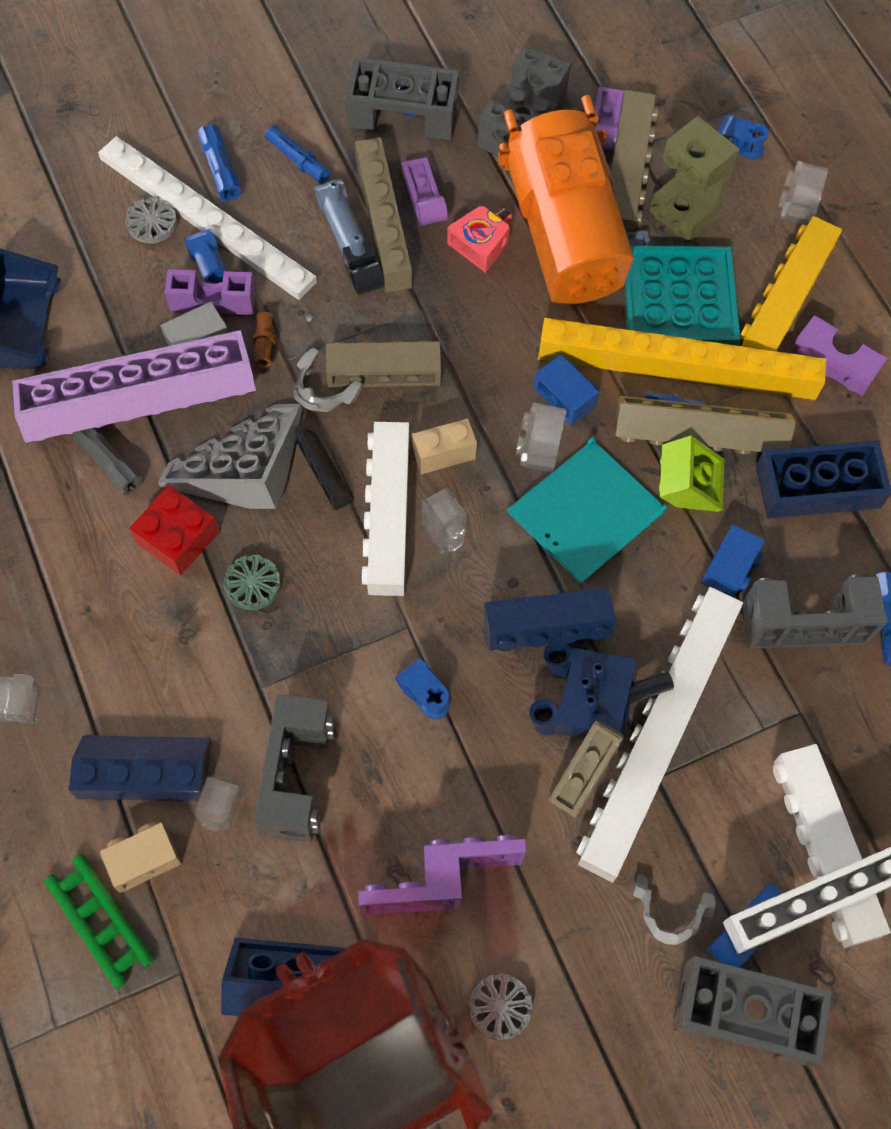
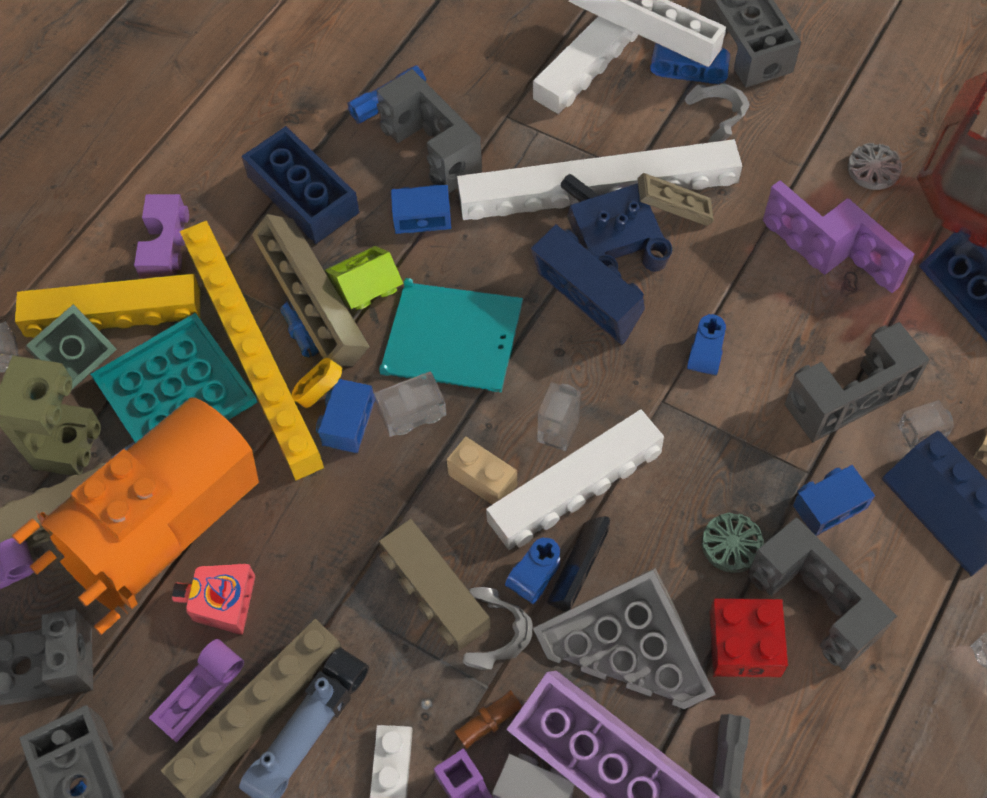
camera: 120 degrees left, 5 degrees down
(119, 609) = (862, 611): none -> dark grey plate
(220, 676) = (833, 499): none -> blue brick
(341, 434) = (531, 574): none -> blue piece
(608, 381) = (316, 382): none -> yellow beam
(757, 236) = (73, 343): none -> sand green brick

